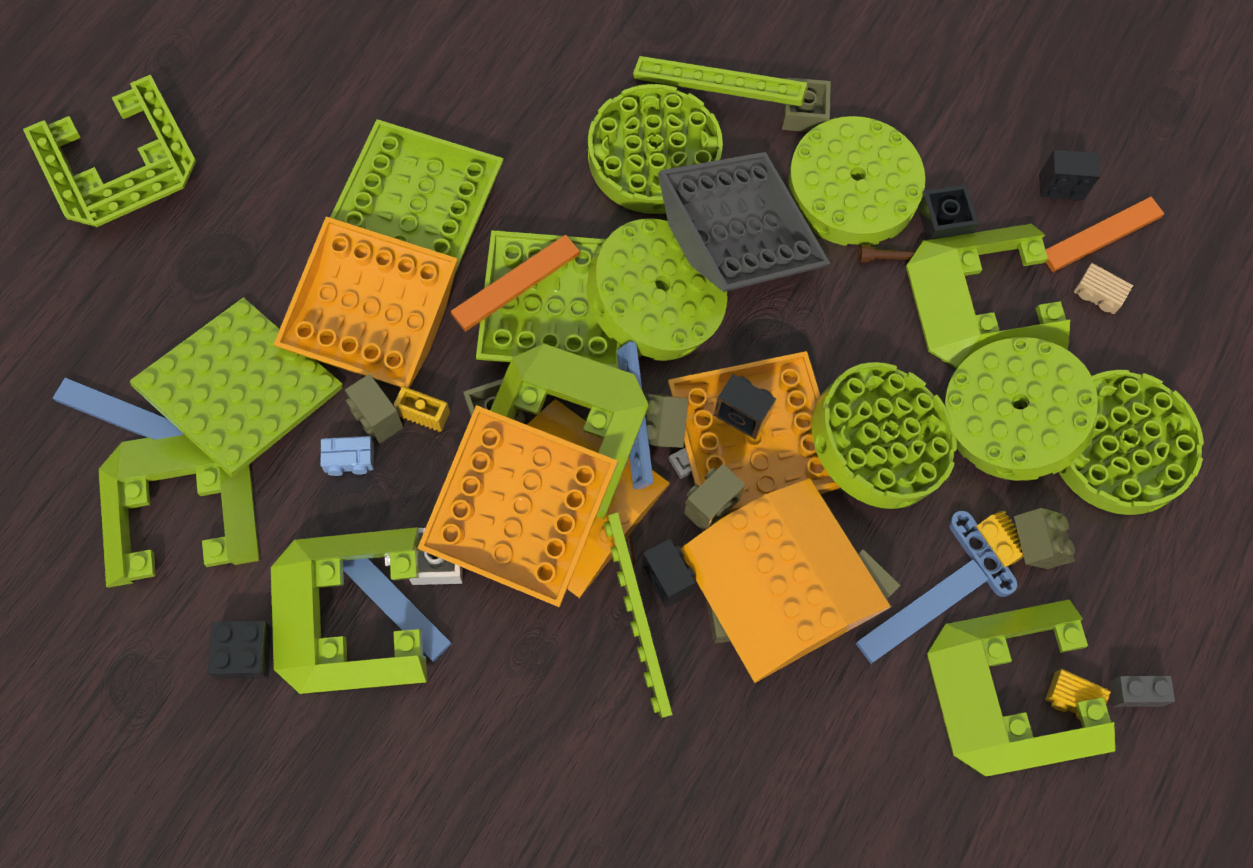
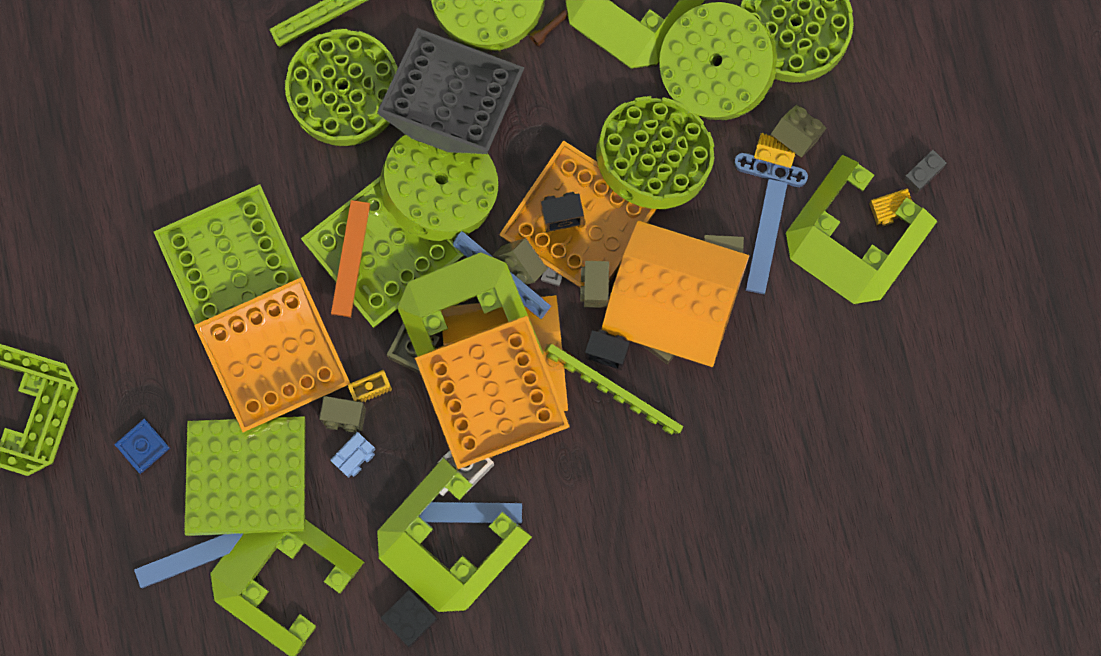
camera: 35 degrees left, 10 degrees up
(184, 283) = (142, 446): none -> blue plate

